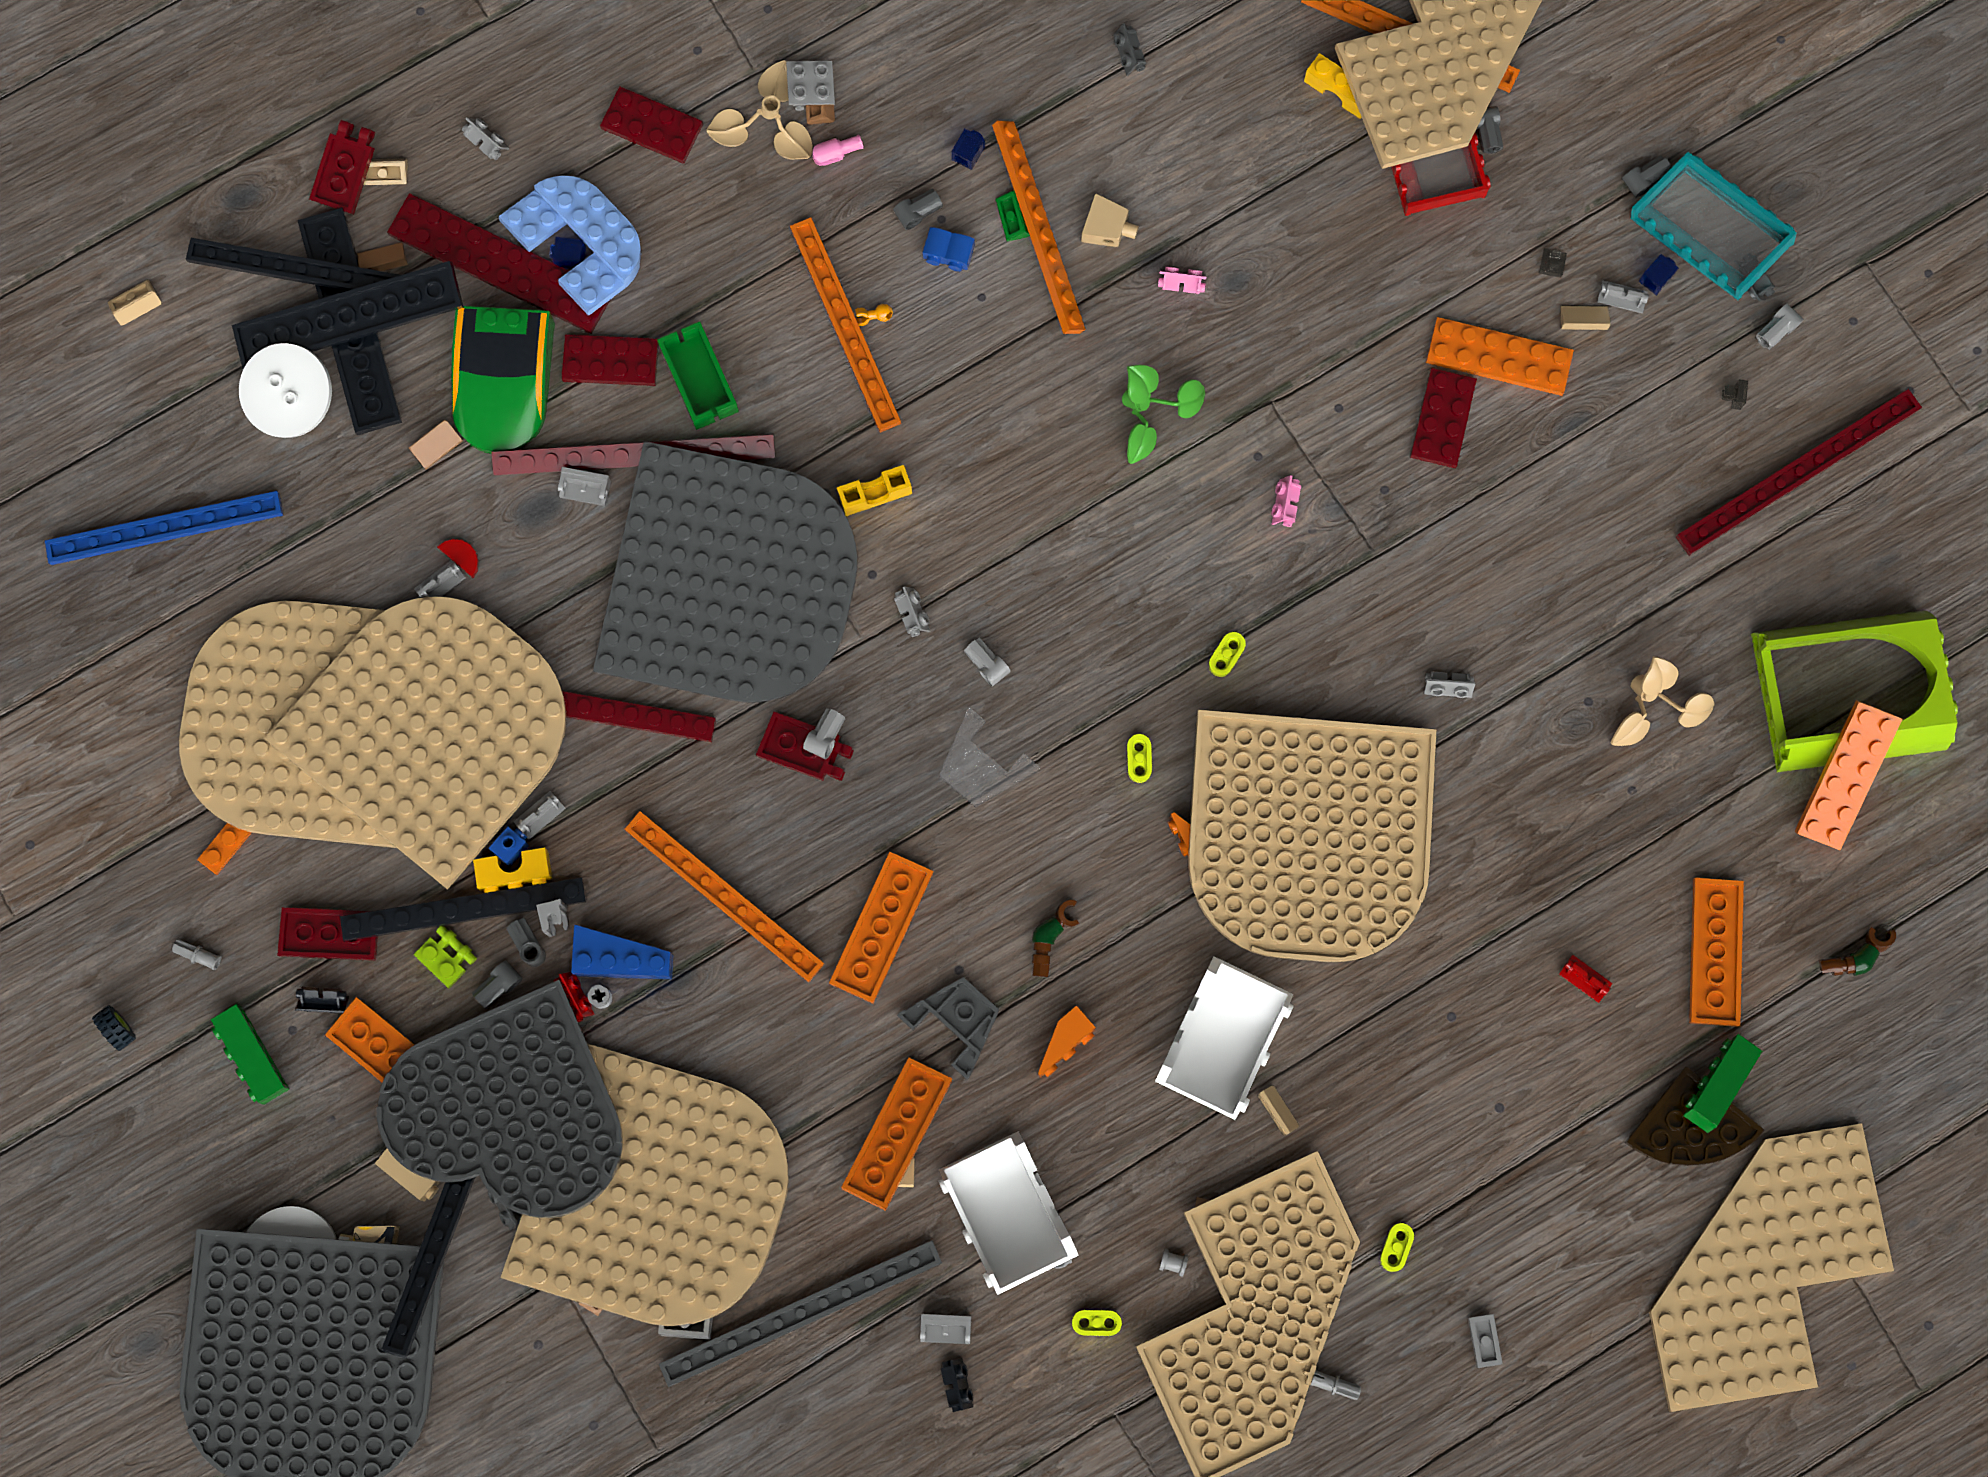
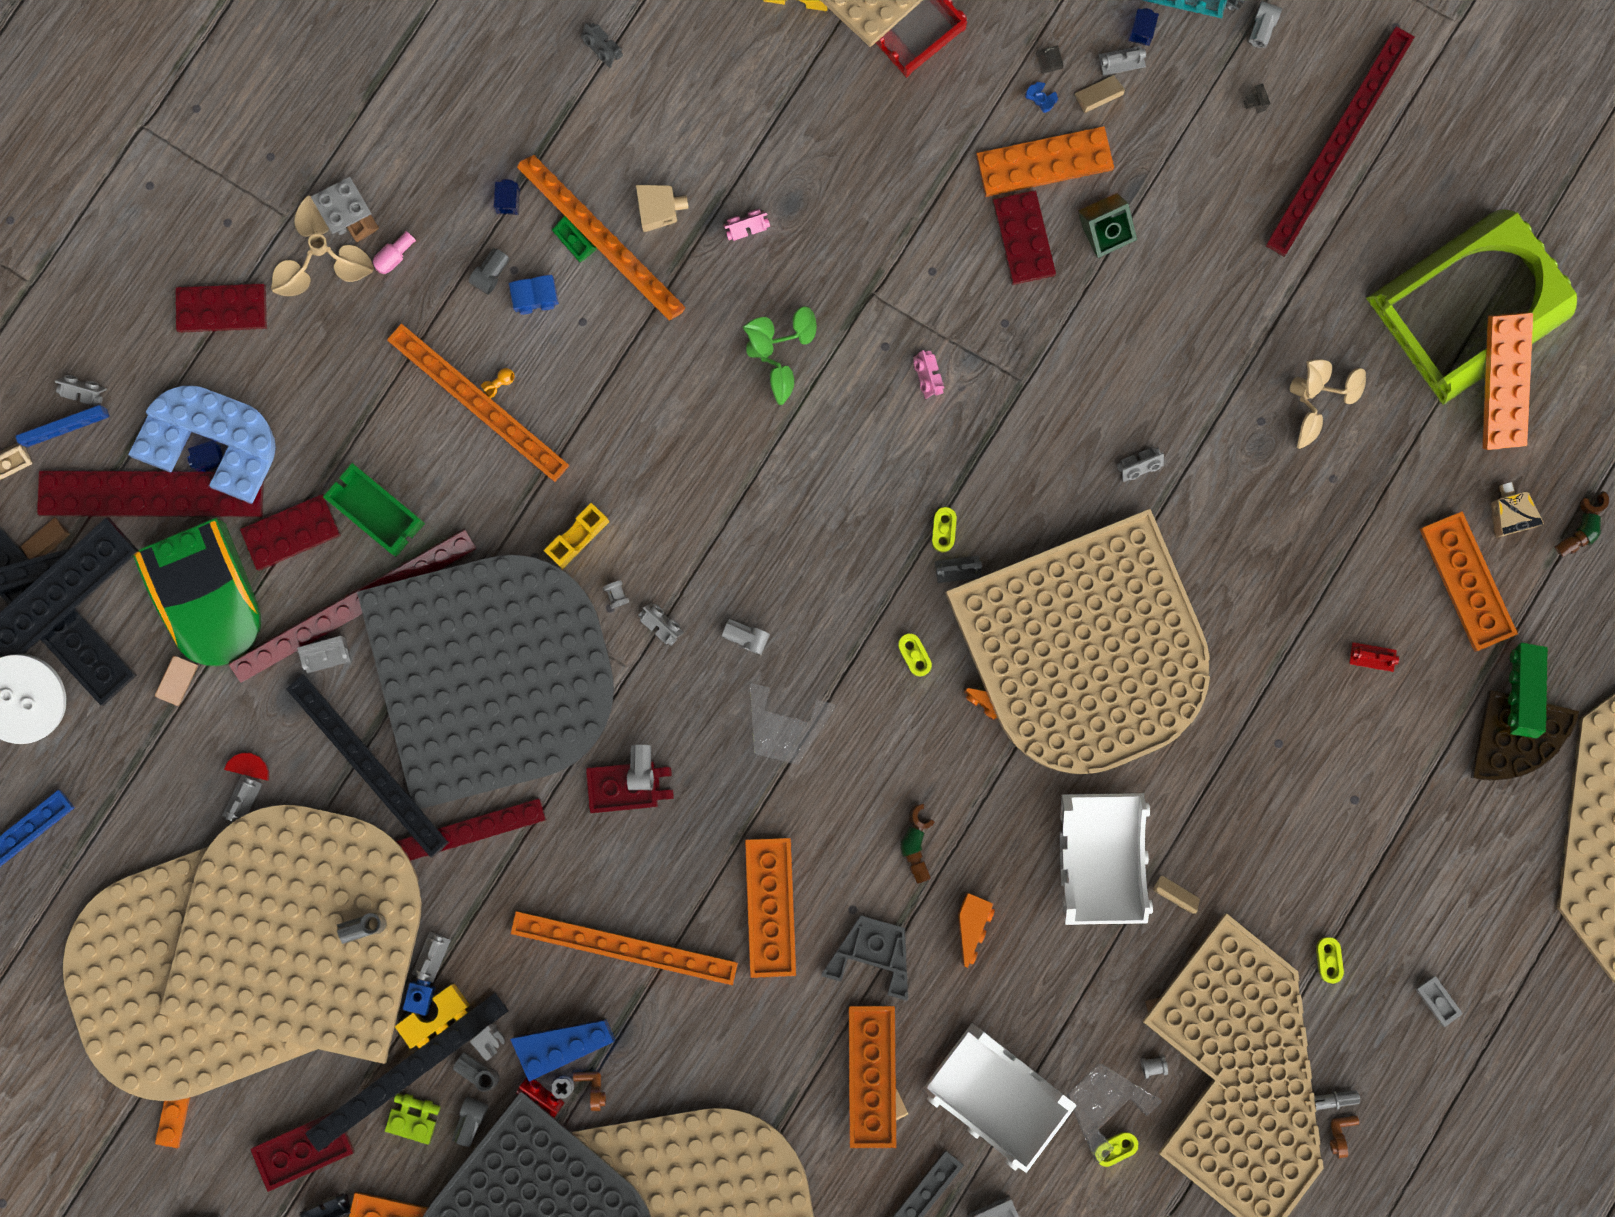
camera: 30 degrees left, 5 degrees up
(451, 163) = (62, 426): none -> blue tile
(488, 750) = (360, 928): none -> dark grey piece
(571, 608) = (367, 766): none -> black plate
(627, 1023) = (597, 1097): none -> dark orange plate
(884, 563) = (616, 594): none -> light grey bush
(1106, 1265) = (1099, 1098): none -> clear wing
(1221, 697) = (958, 569): none -> dark grey hinge
(1316, 1429) = (1338, 1144): none -> dark orange plate
(1522, 288) = (1045, 102): none -> blue piece
(1530, 444) = (1108, 224): none -> dark green slope
(1795, 907) = (1514, 512): none -> tan torso

